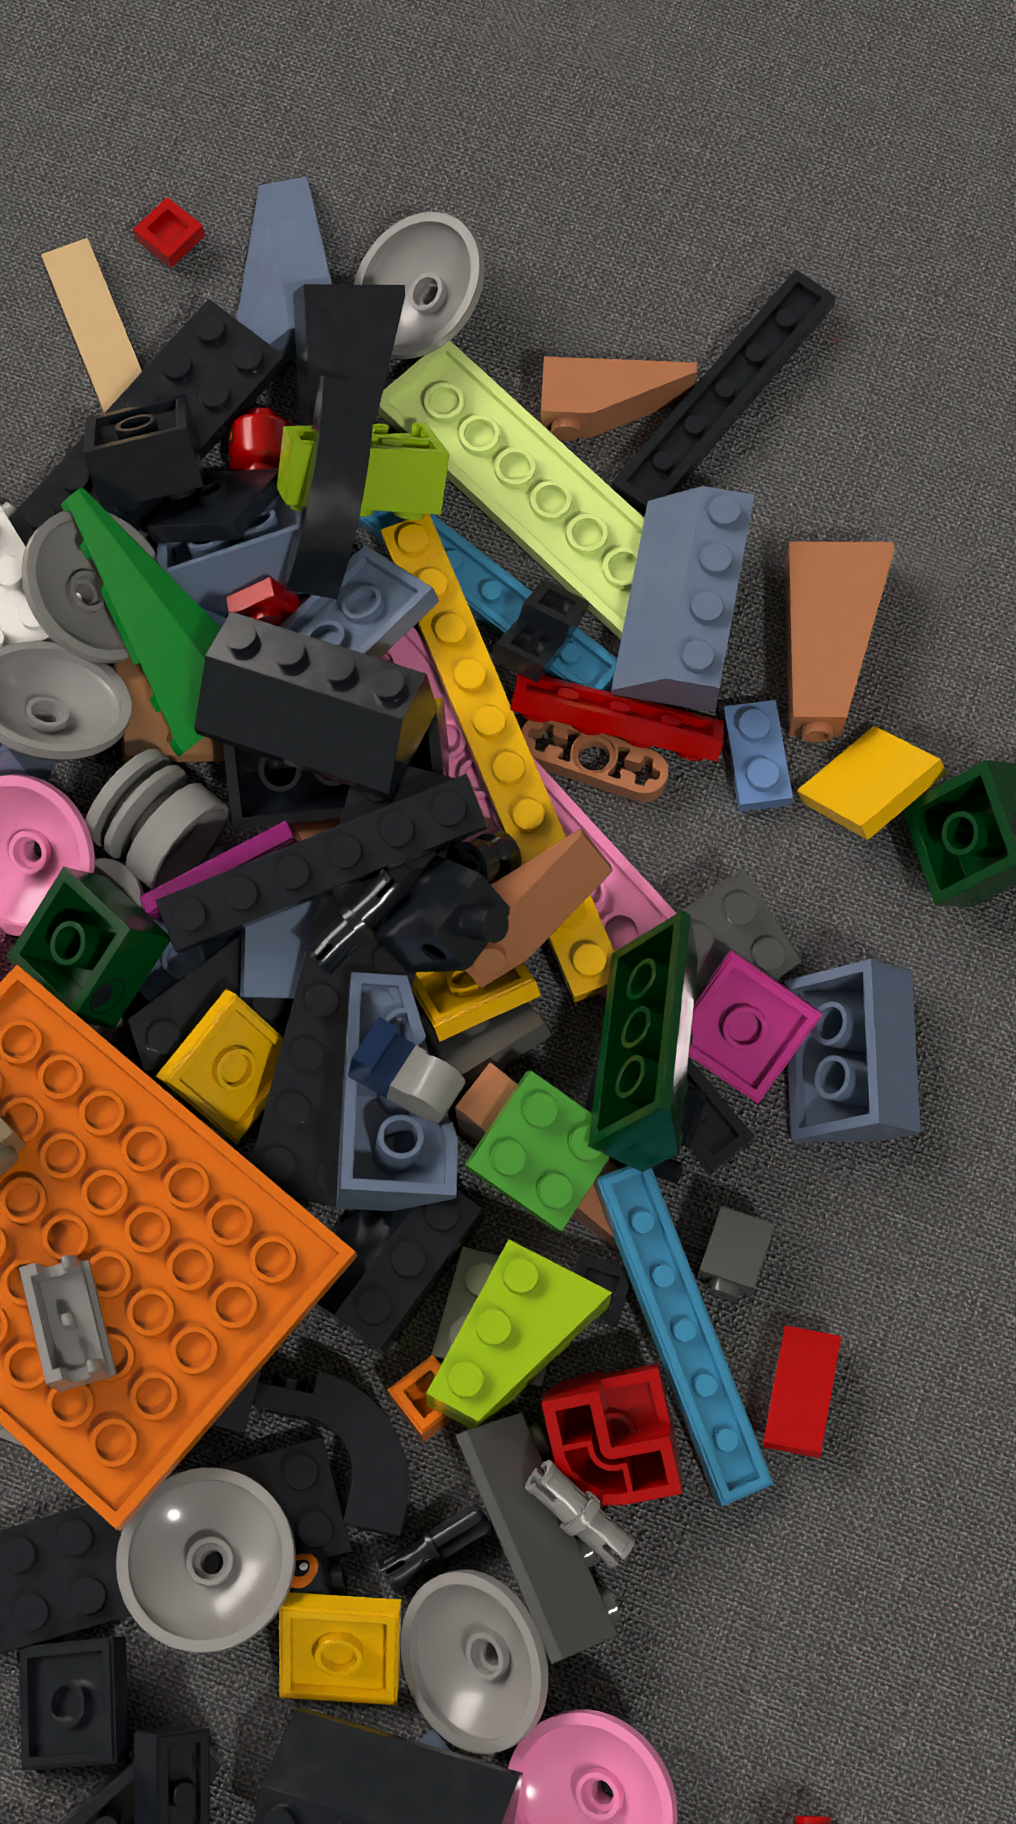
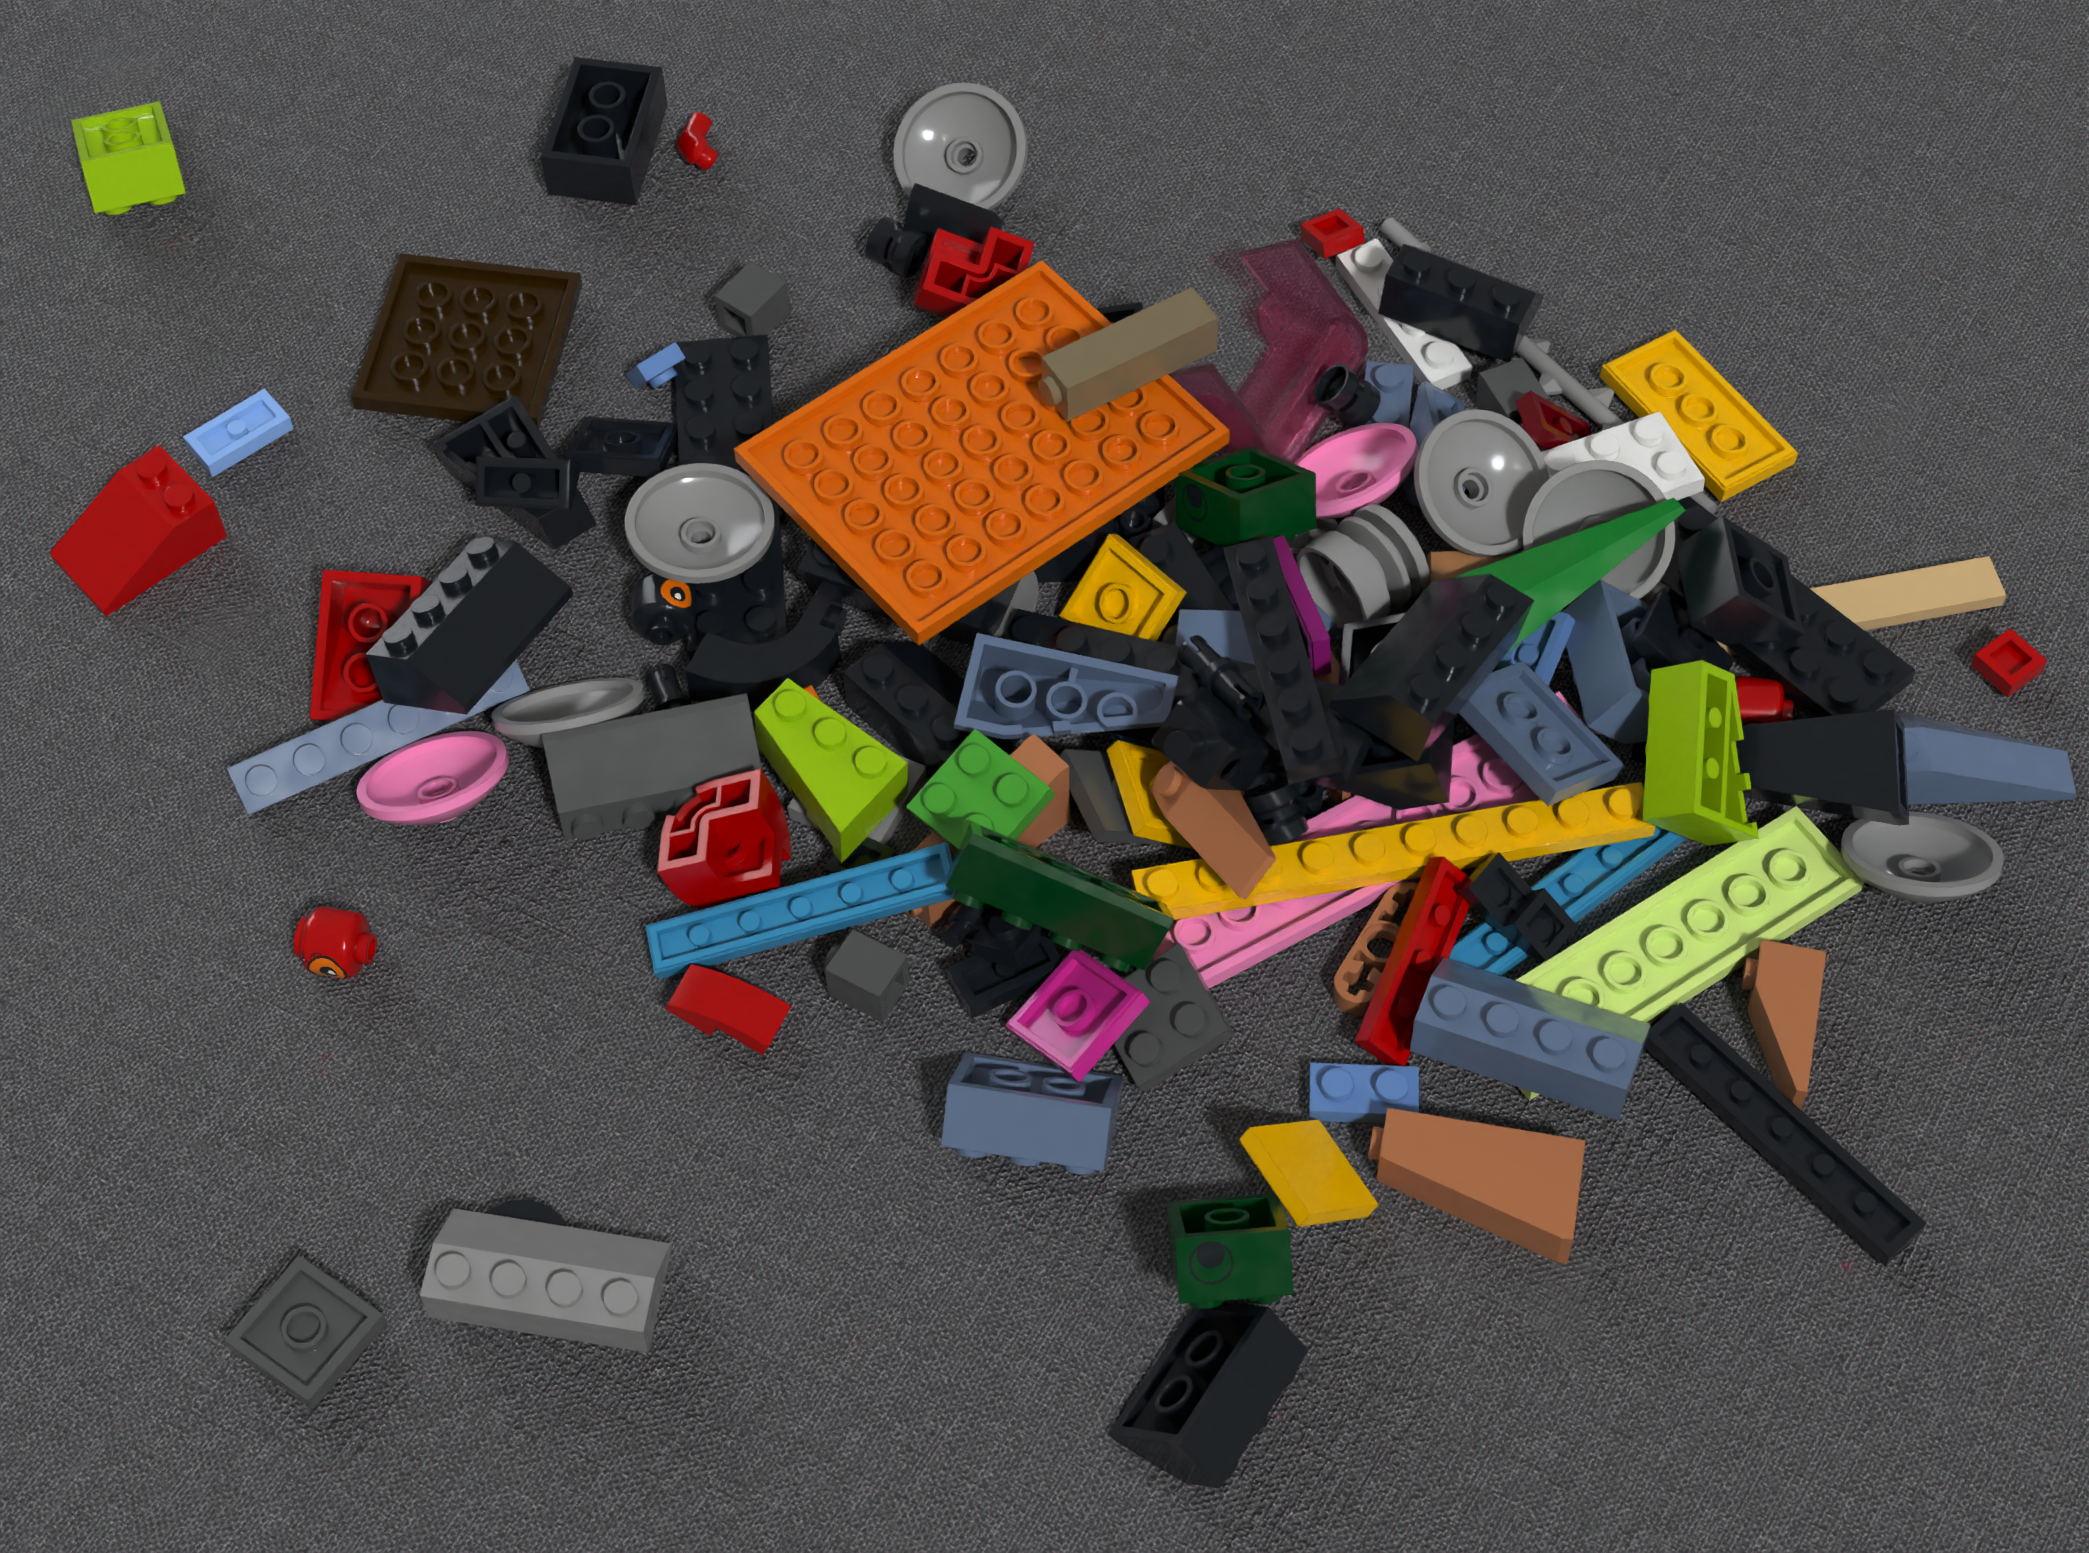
camera: 100 degrees right, 15 degrees down
(68, 1323) = (904, 421): light grey hinge -> none
(264, 602) = (1566, 671): red plate -> none
(333, 488) = (1666, 701): black slope -> none
(339, 1648) = (607, 622): yellow tile -> none
(405, 1073) = (1070, 688): leg -> none
(579, 1513) = (662, 794): light grey pin -> none

